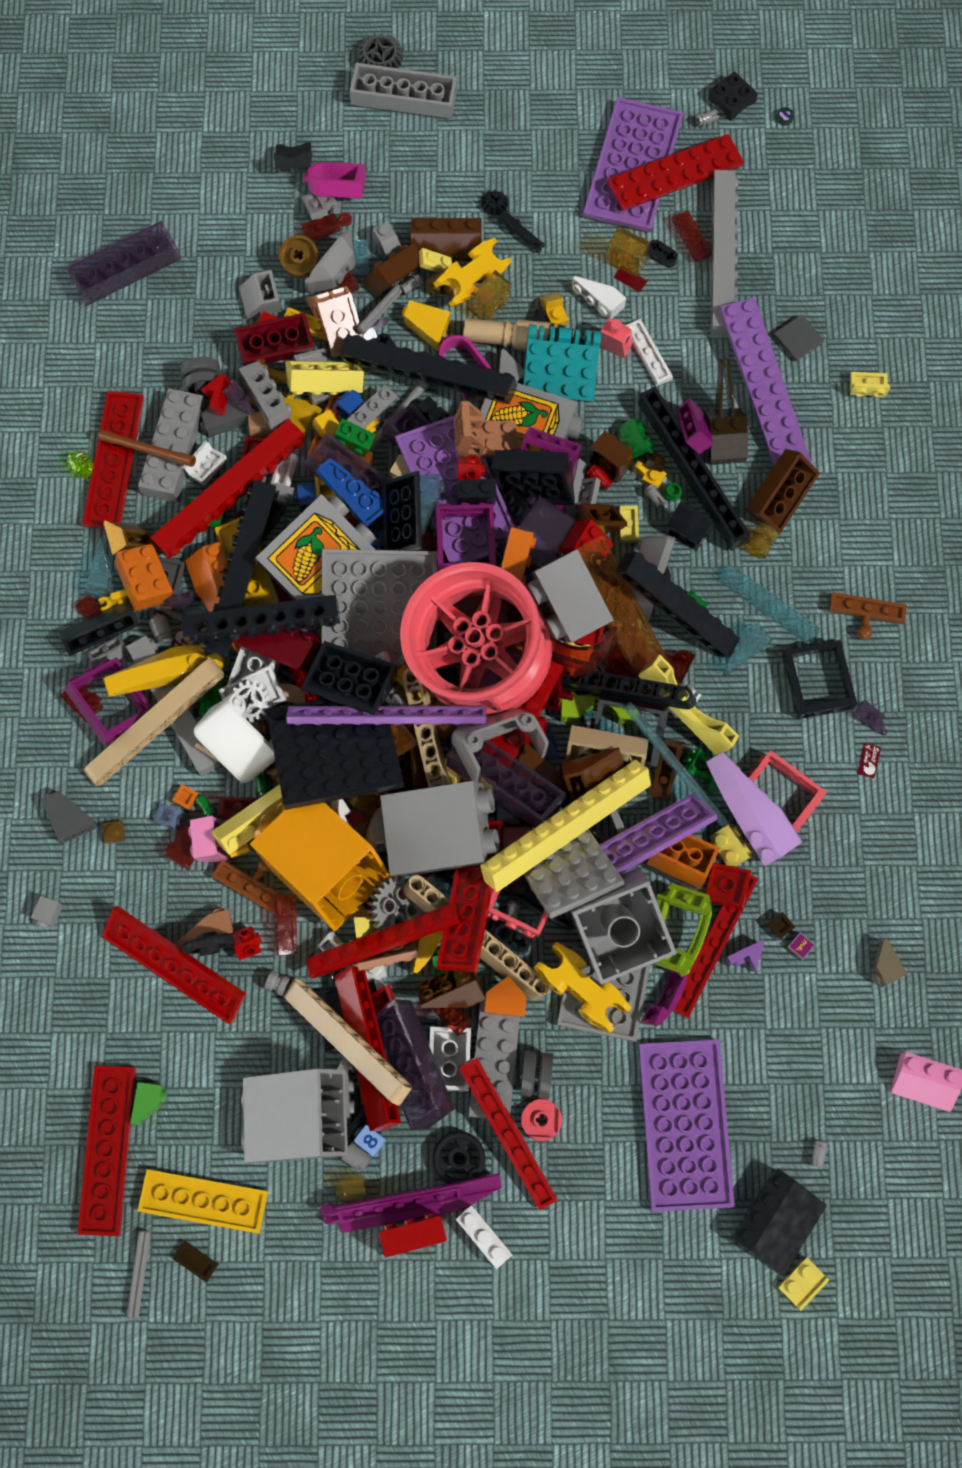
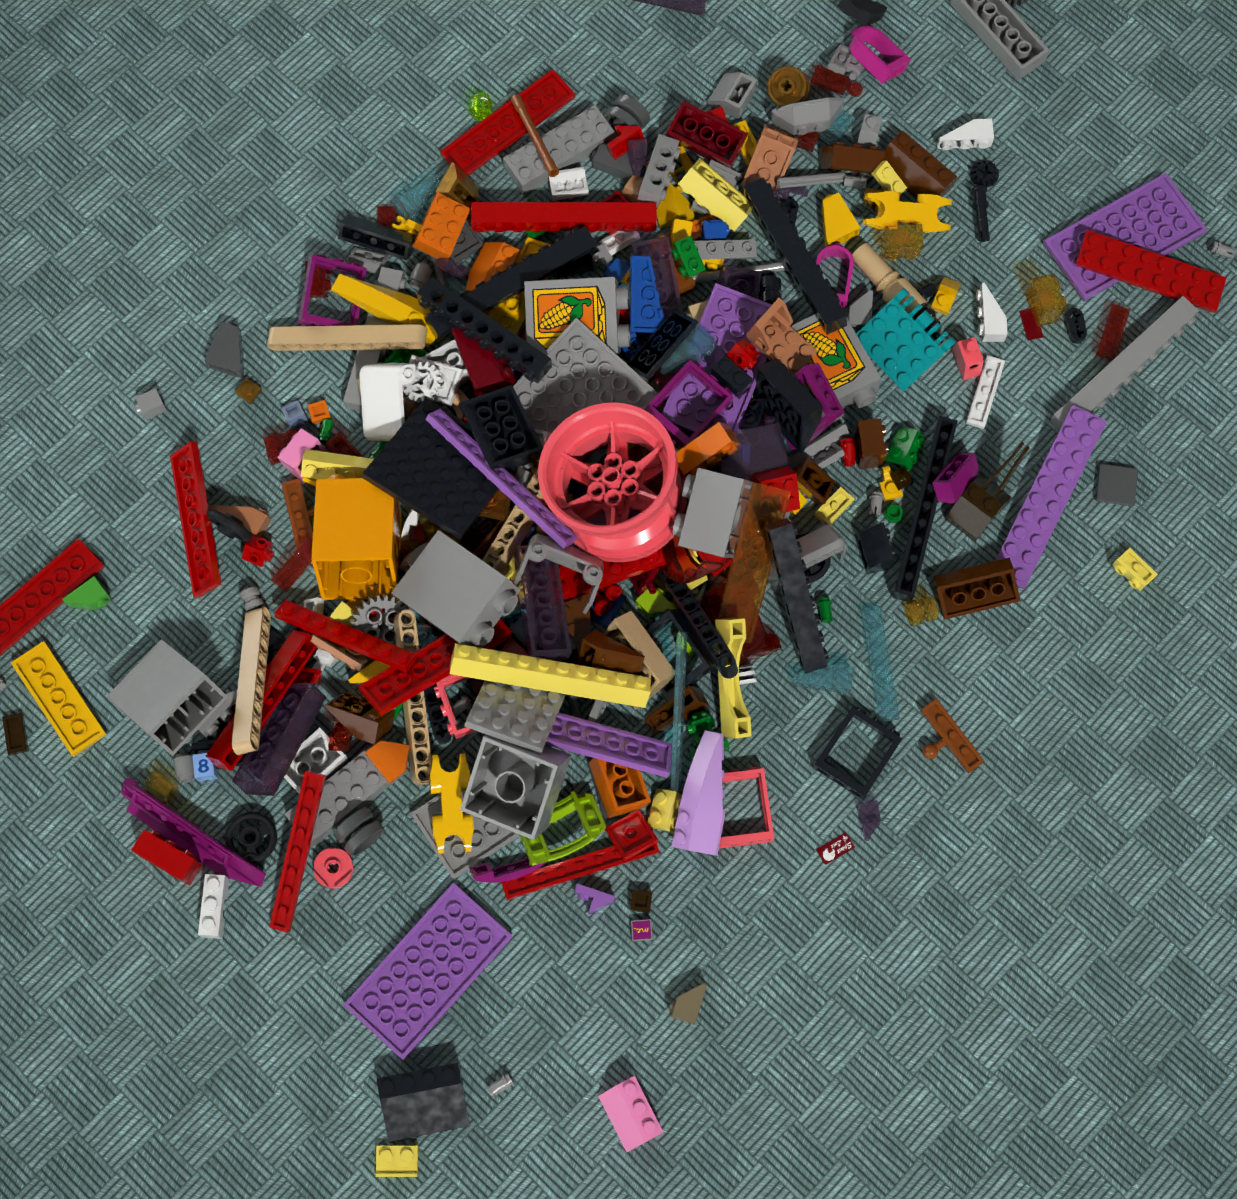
camera: 45 degrees right, 0 degrees up
(461, 180) = (970, 135): none -> white slope

